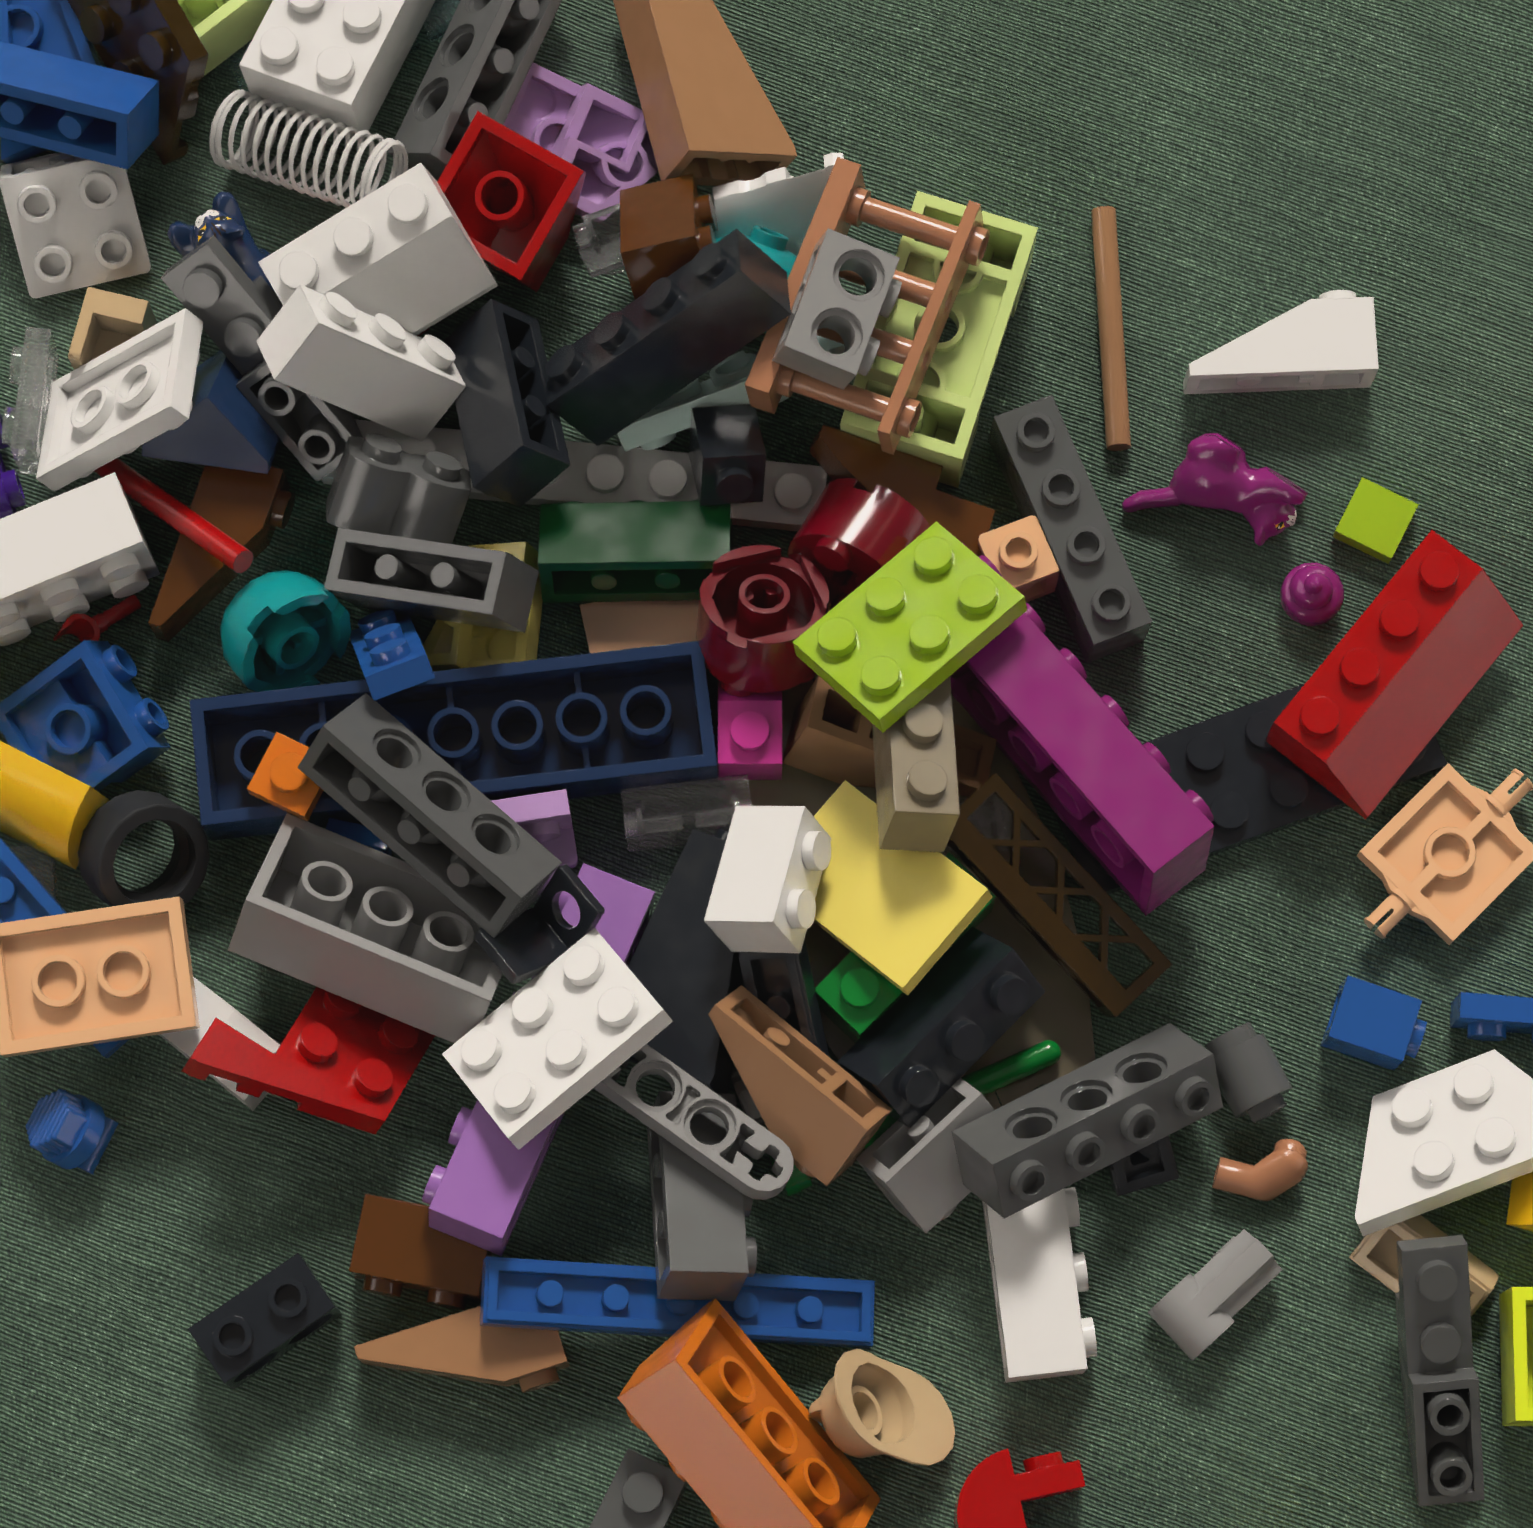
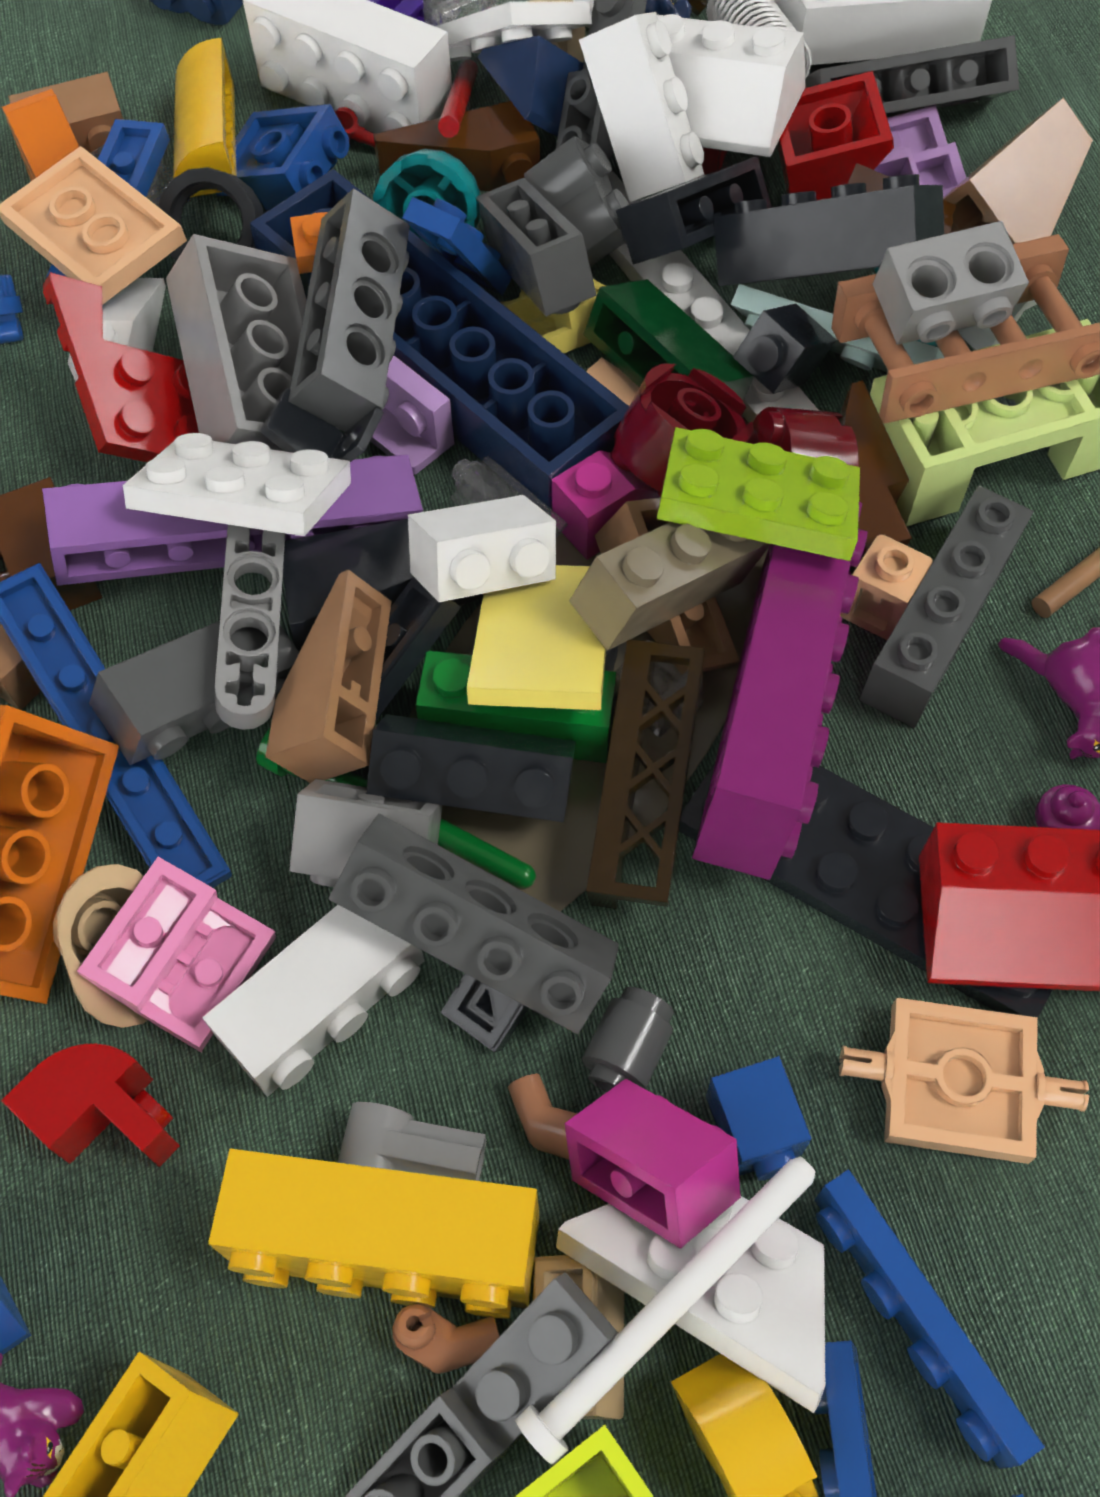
camera: 55 degrees right, 15 degrees down
(929, 1364) = (176, 952): none -> bright pink slope
(1271, 1348) = (377, 1231): none -> yellow brick
(1358, 1123) = (654, 1161): none -> dark pink brick
(1365, 1364) = (438, 1342): none -> nougat arm
(1471, 1189) = (549, 1426): none -> white bar

